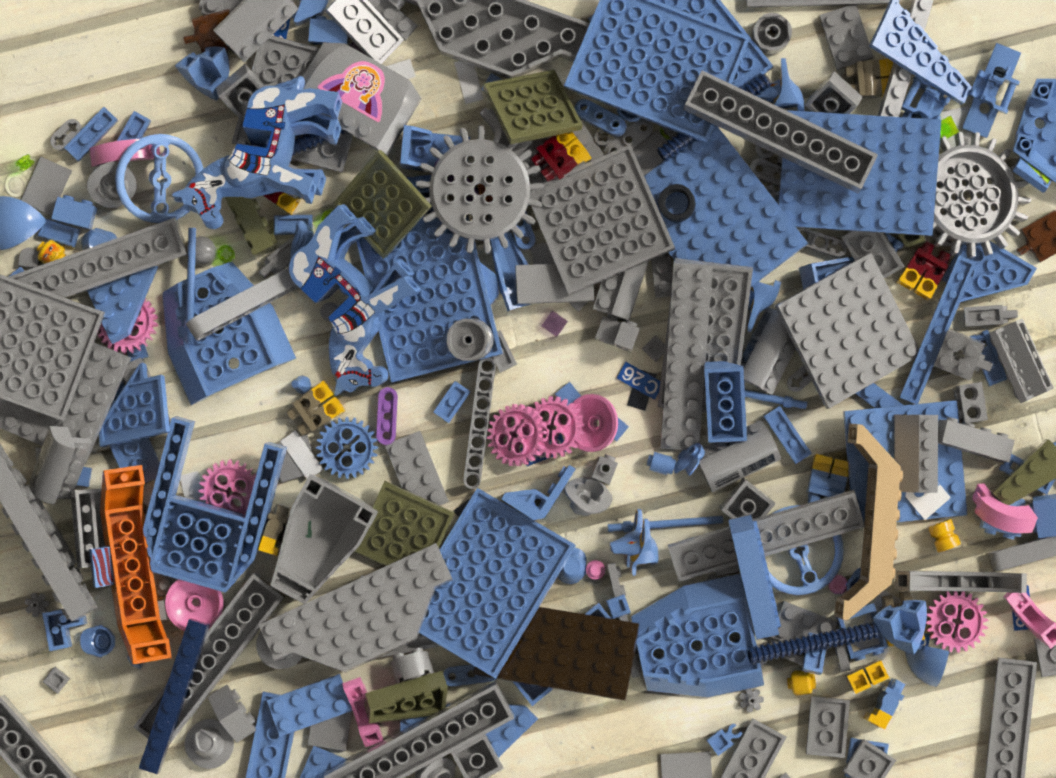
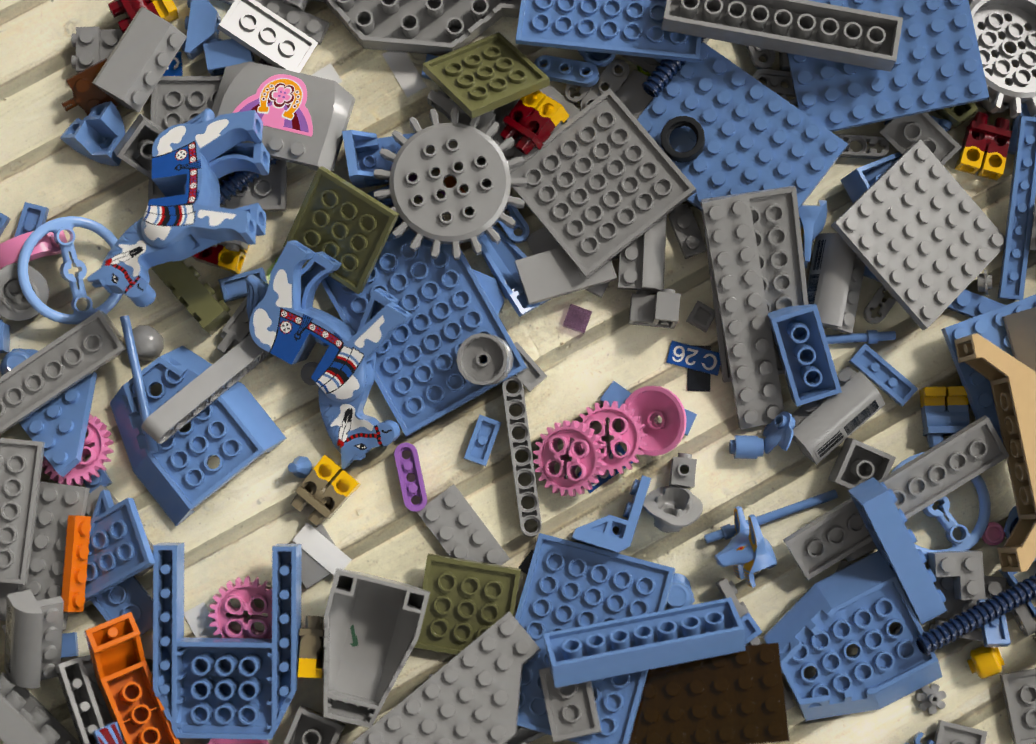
camera: 15 degrees left, 5 degrees down
(107, 414) = (76, 563): none -> orange plate
(222, 258) = (166, 335): clear neon green bush -> none
(360, 460) = (354, 516): medium blue gear -> none
(464, 624) = (569, 708): none -> light grey plate
(534, 595) = (644, 642): none -> medium blue slope
(595, 569) = (704, 592): bright pink plate -> none
(805, 606) = (964, 567): none -> light grey brick
(891, 382) = (984, 282): none -> light grey plate

